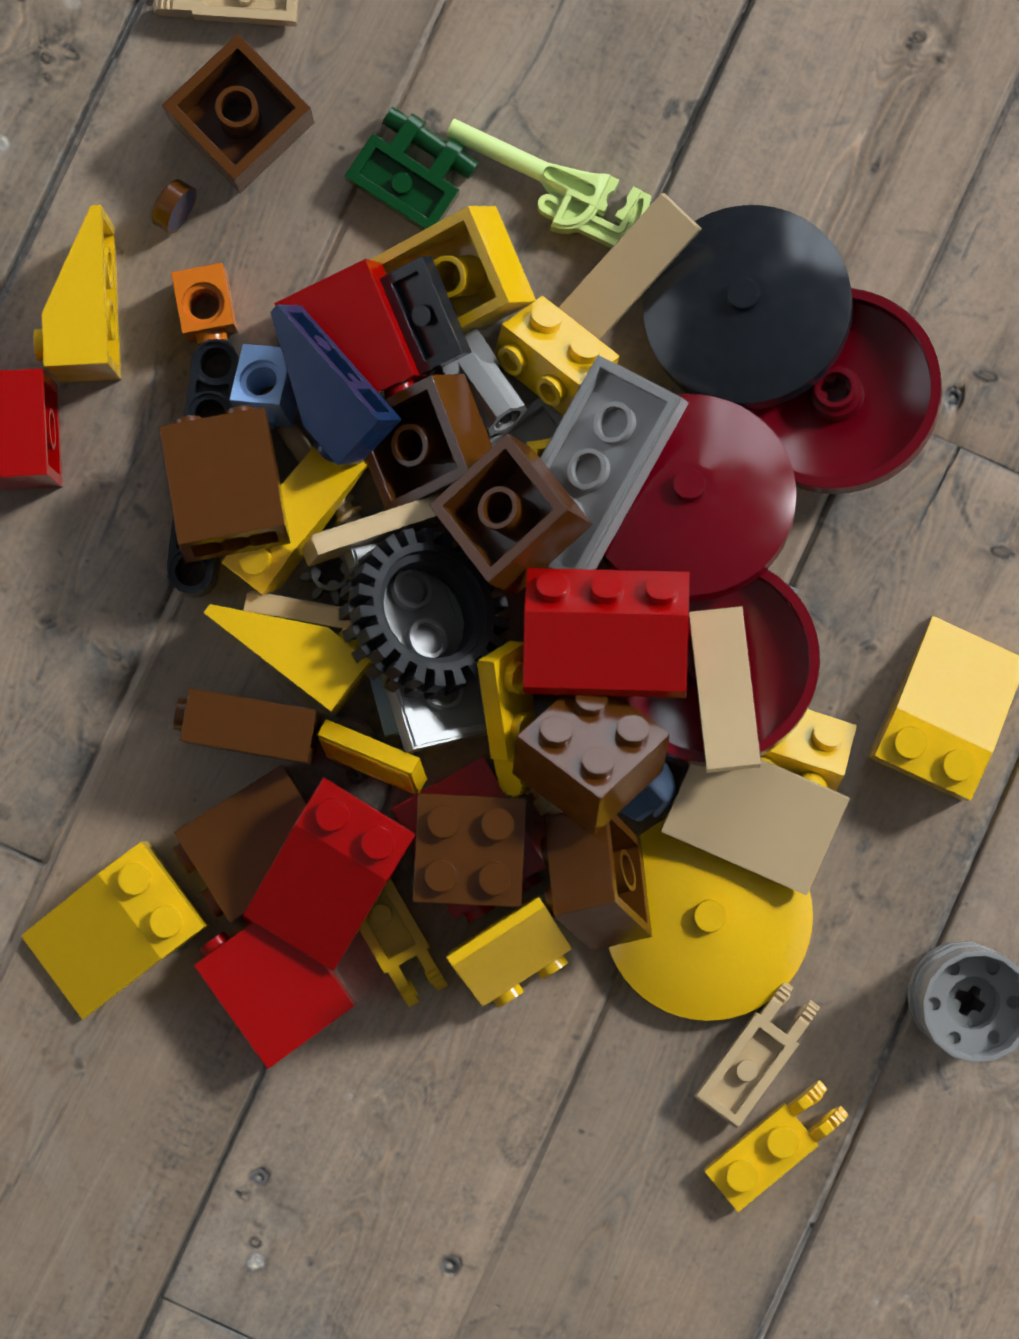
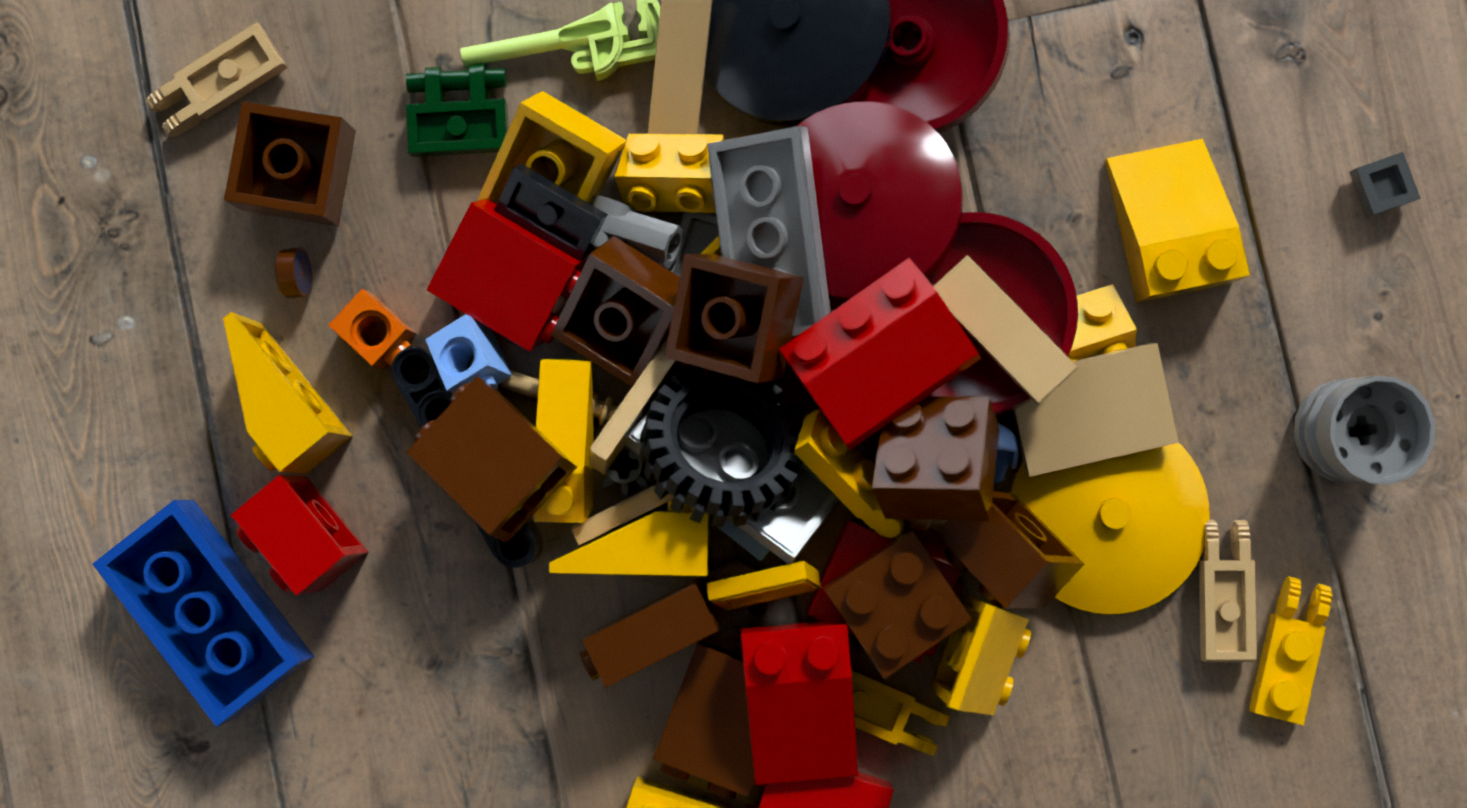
camera: 25 degrees left, 0 degrees up
(331, 393) = (522, 326): dark blue slope -> none

